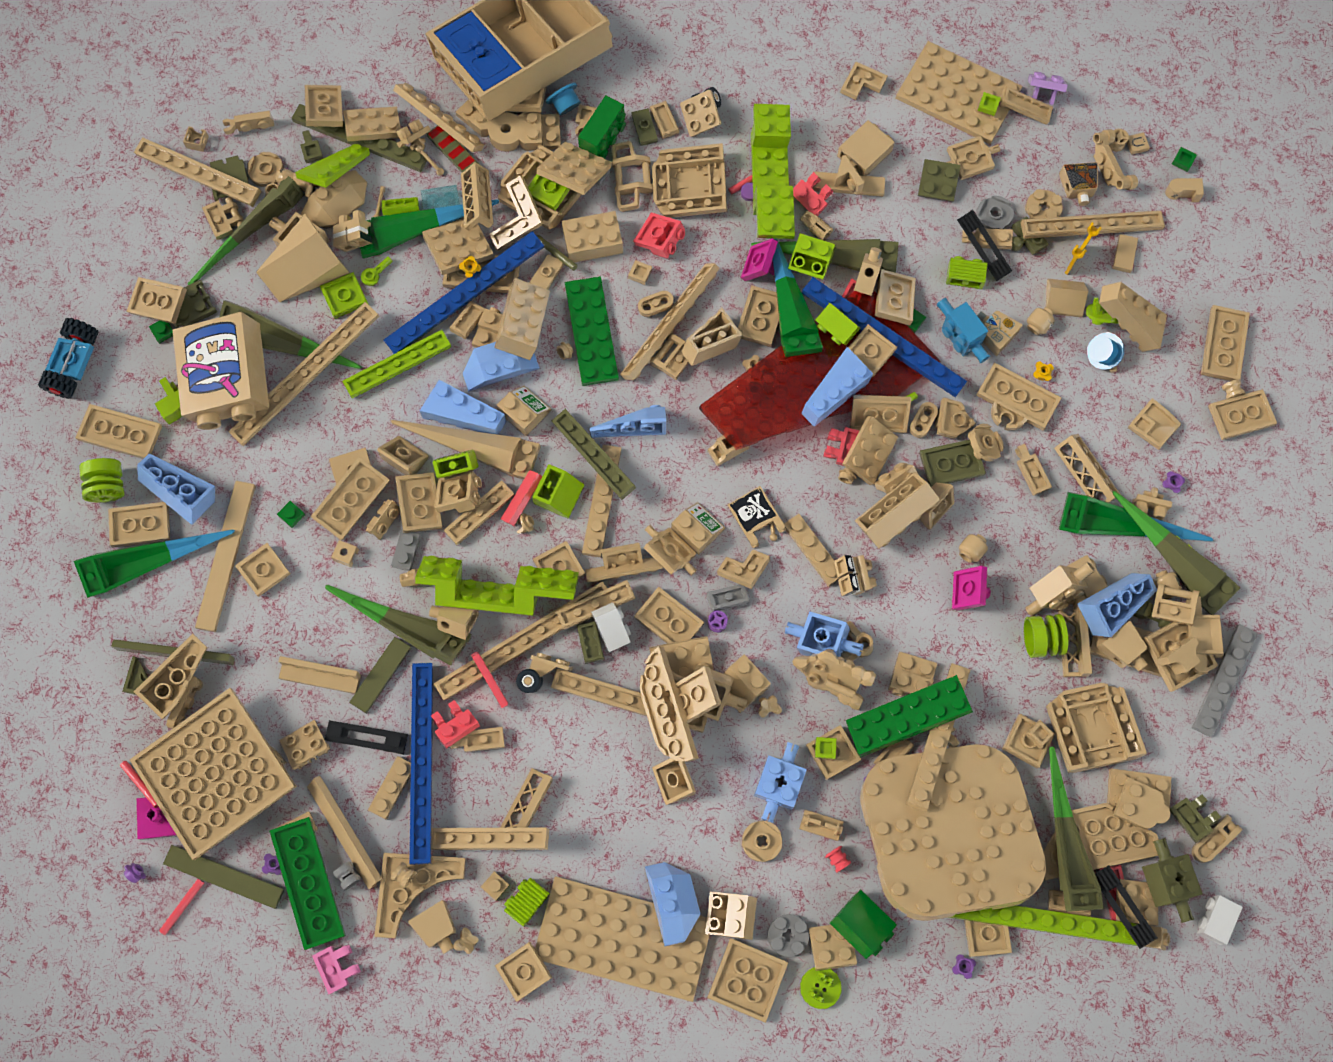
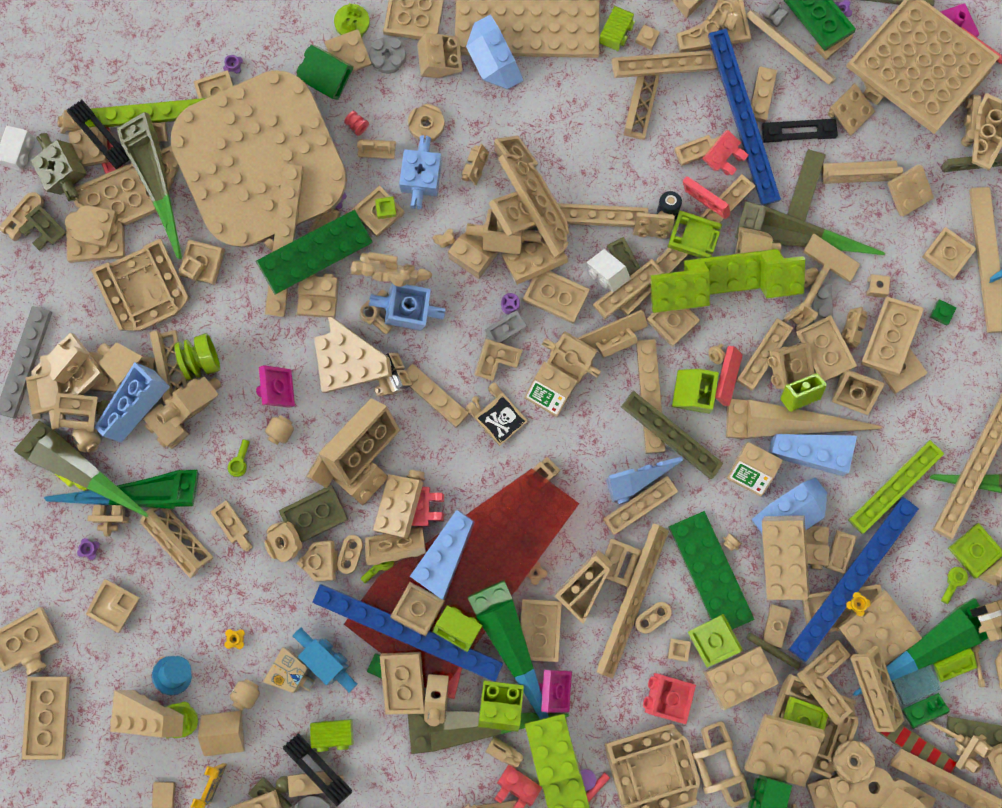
camera: 170 degrees right, 5 degrees up
(277, 640) = (910, 190): none -> tan plate
(382, 590) = (832, 260): none -> tan piece
(439, 177) = (925, 711): none -> green plate
(511, 142) = (864, 761): none -> tan plate
(511, 641) = (697, 237): none -> lime container
(606, 270) = (715, 640): none -> lime plate
(642, 399) = (640, 505): none -> tan plate
(723, 773) = (478, 157): none -> tan hinge
(893, 599) = (348, 359): none -> tan wing
(1017, 399) = (257, 600): tan plate -> none
(1019, 525) = (237, 466): none -> lime plate

